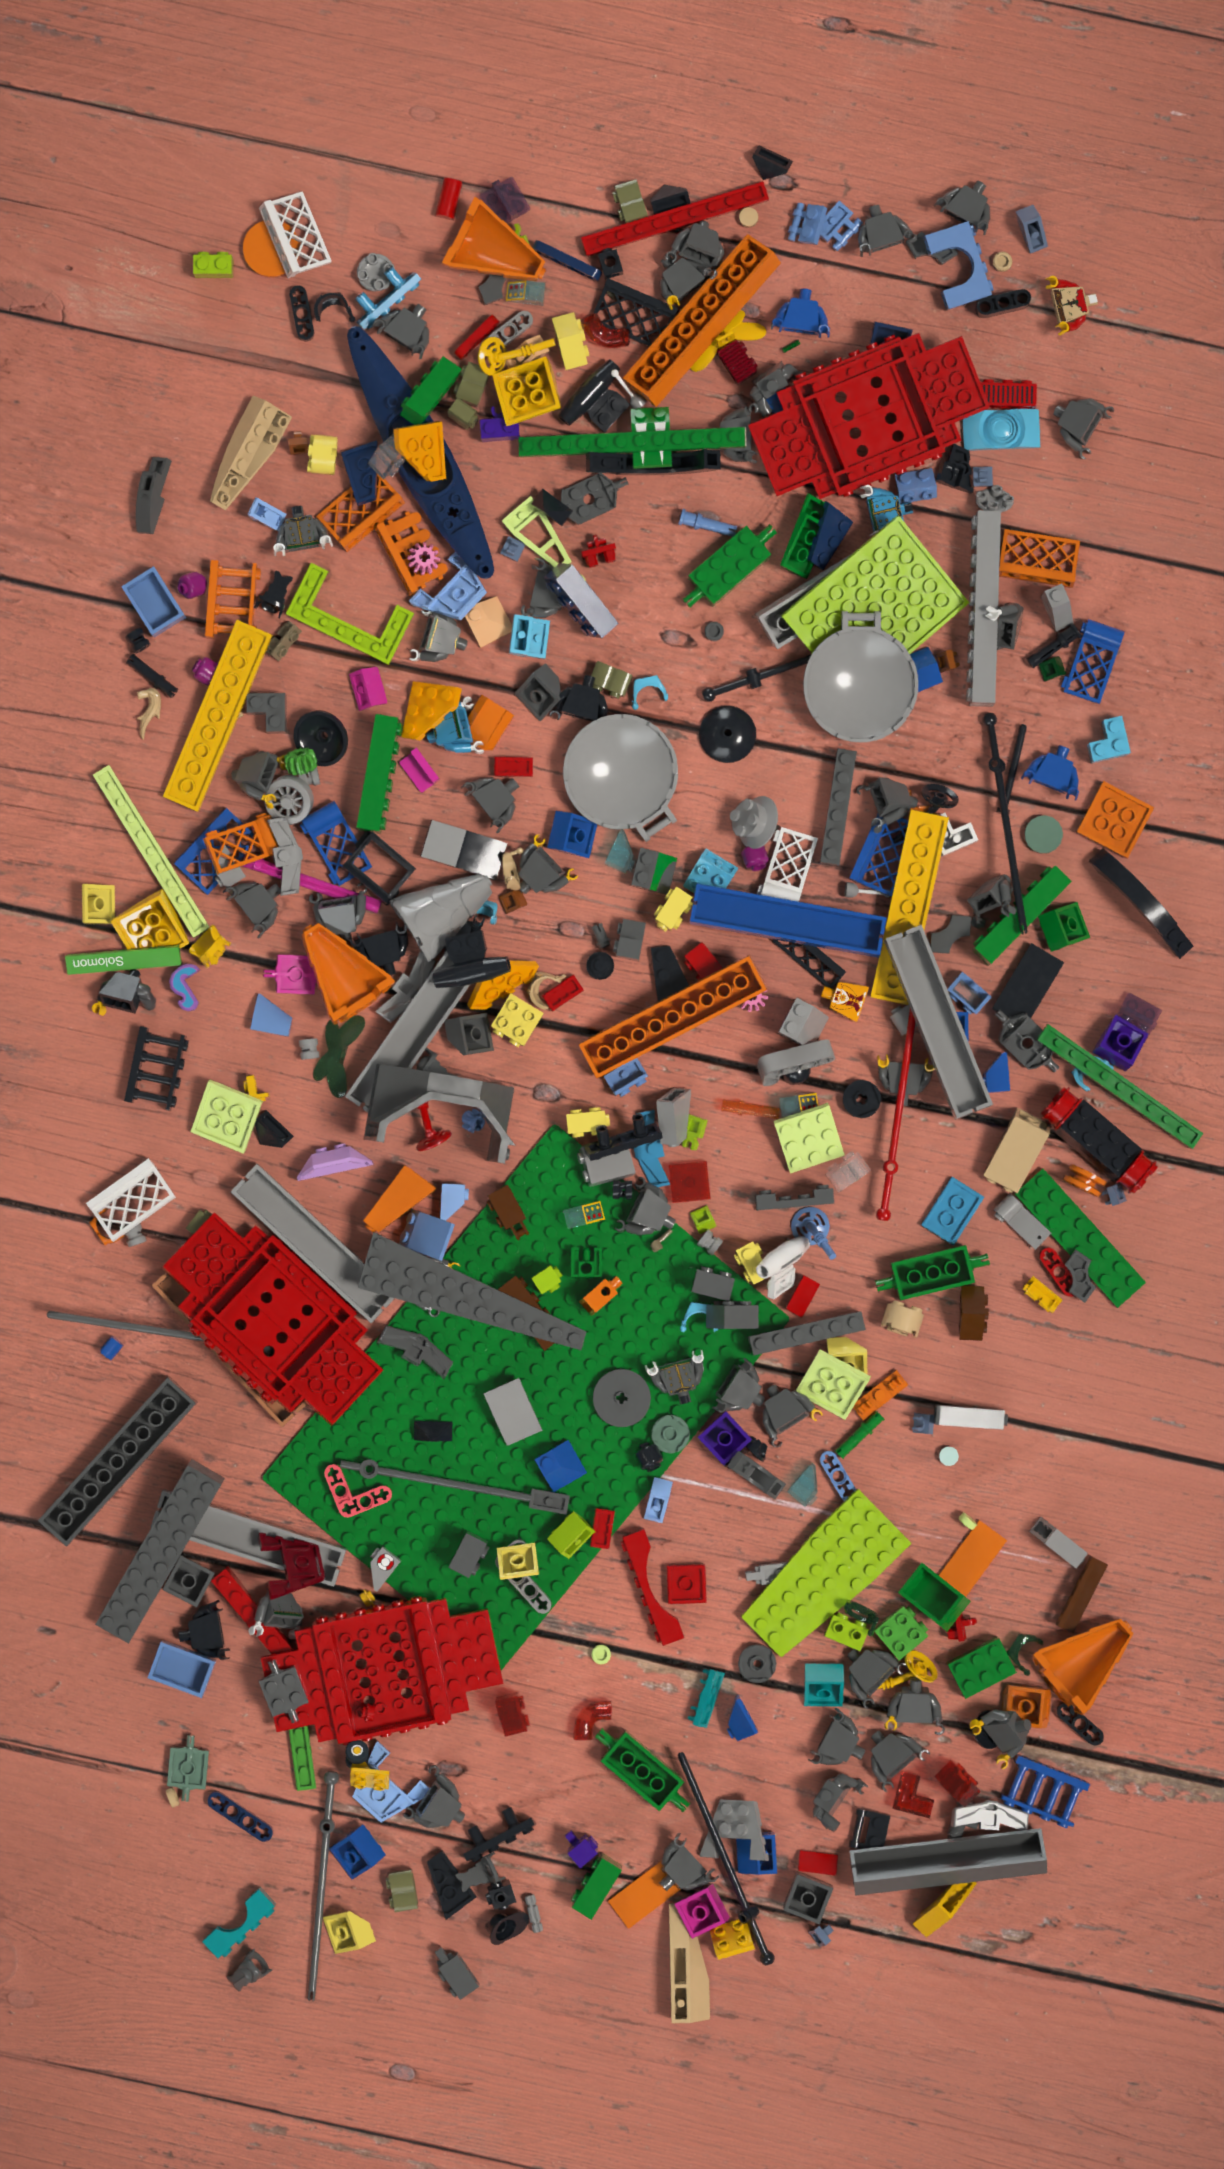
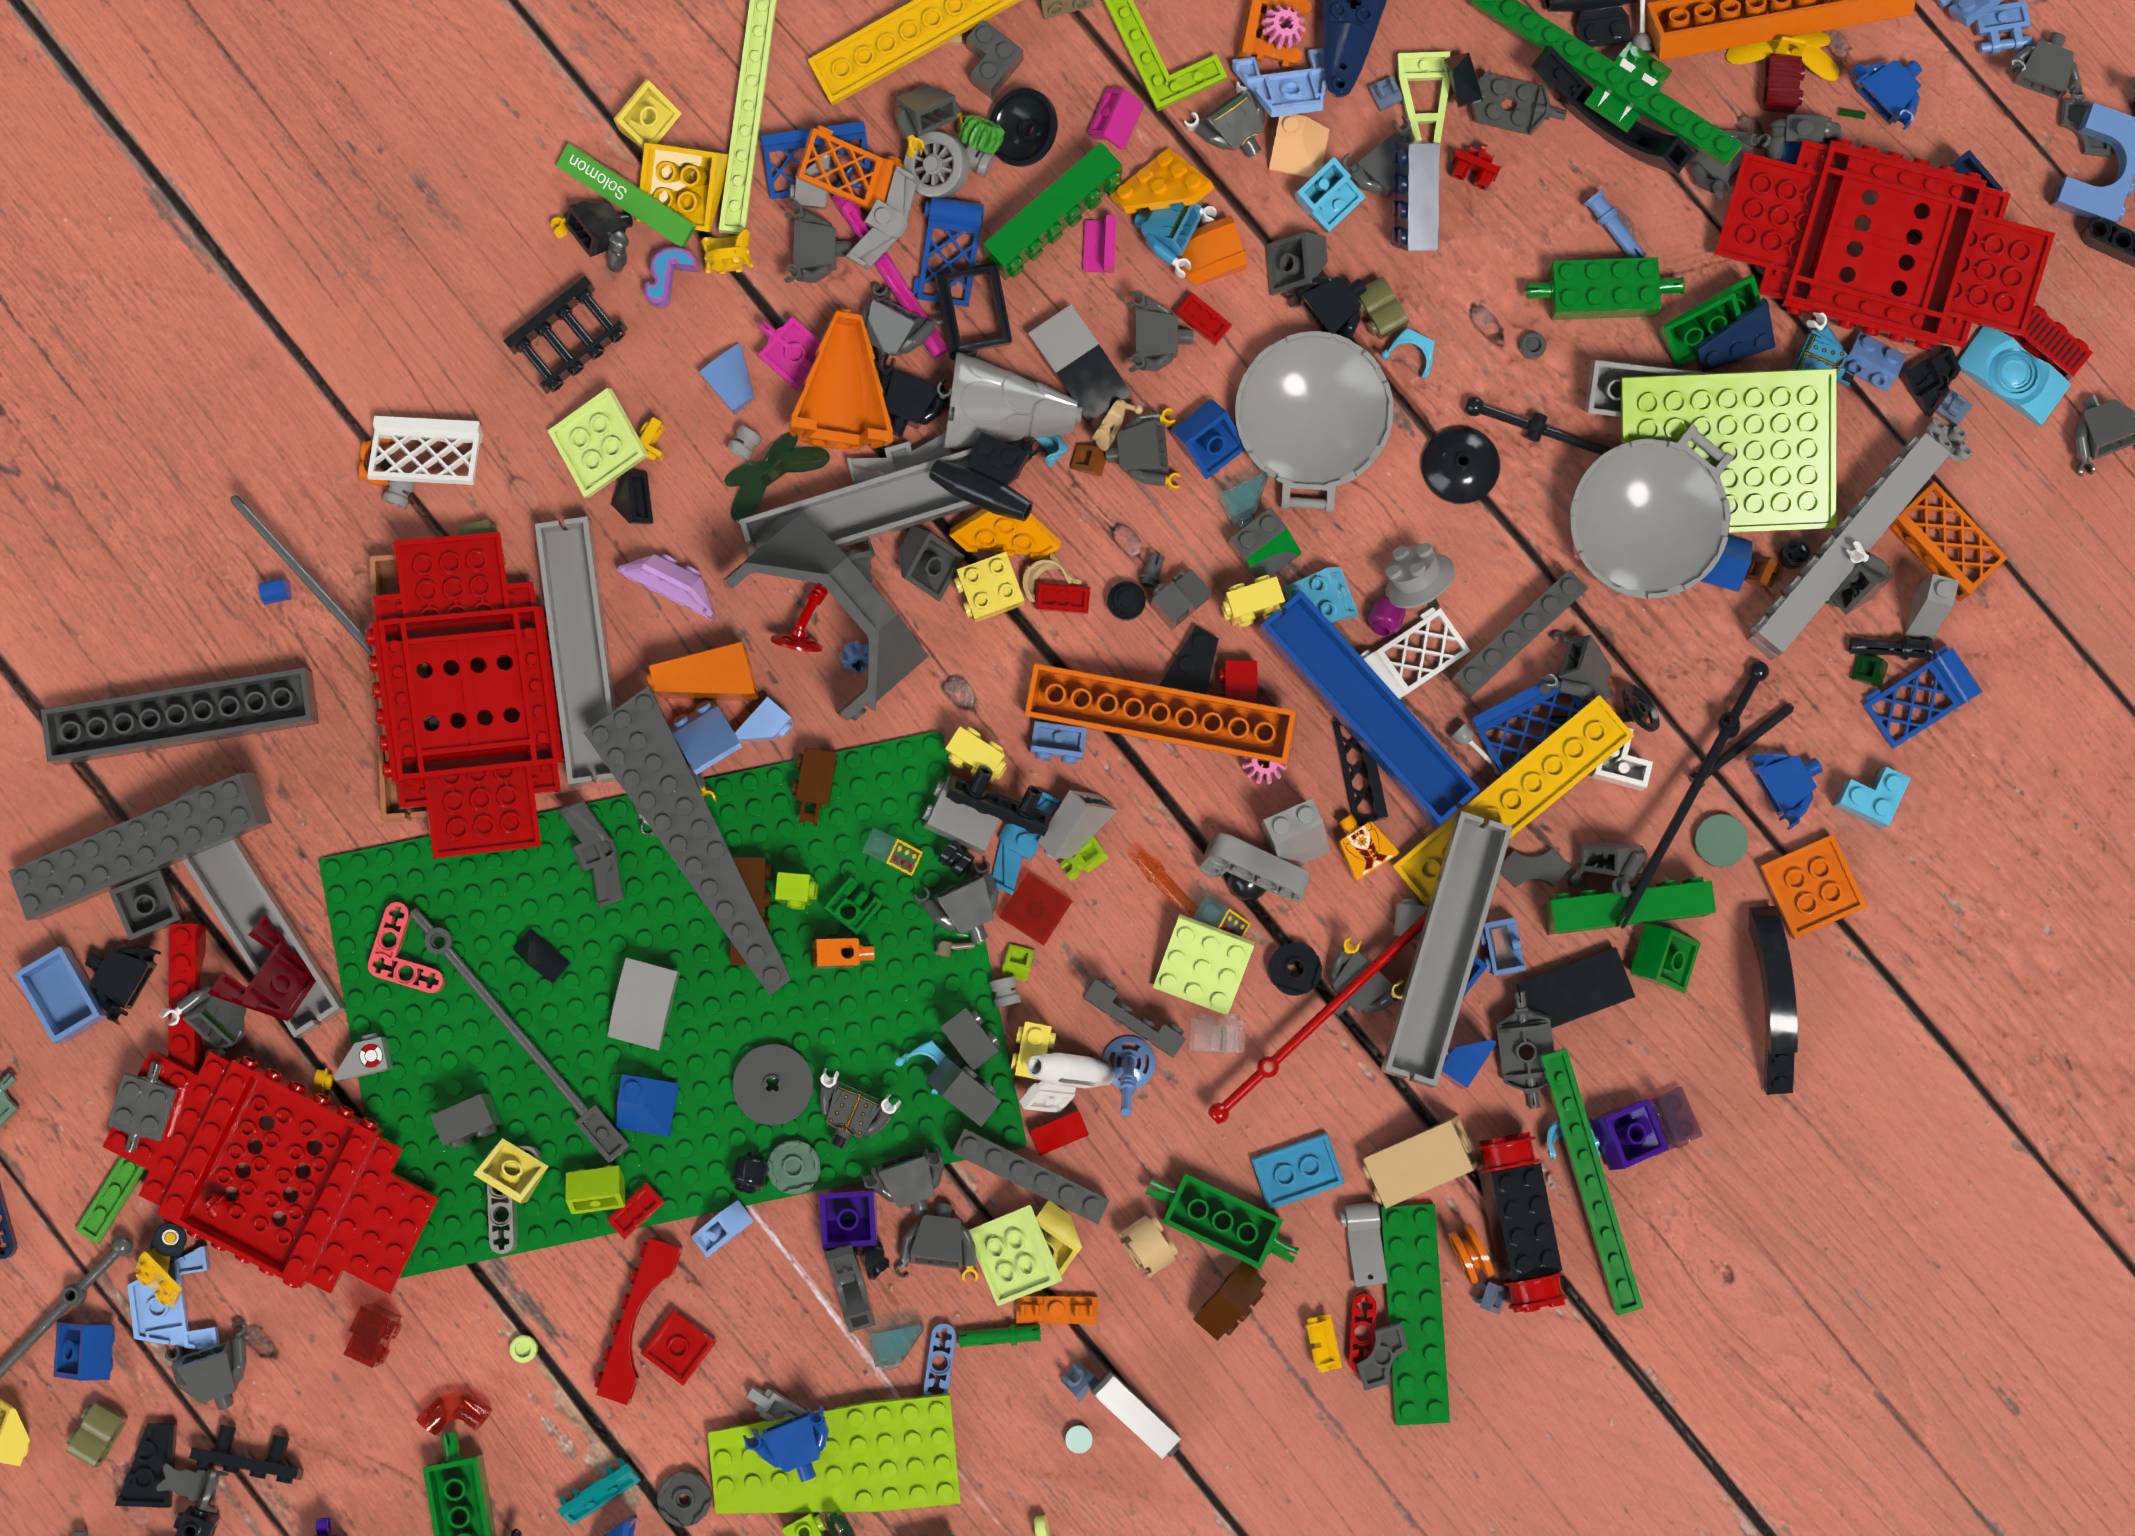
camera: 35 degrees right, 5 degrees down
(793, 1583) = (793, 1443): none -> blue torso
(956, 633) = (1798, 550): none -> black wheel

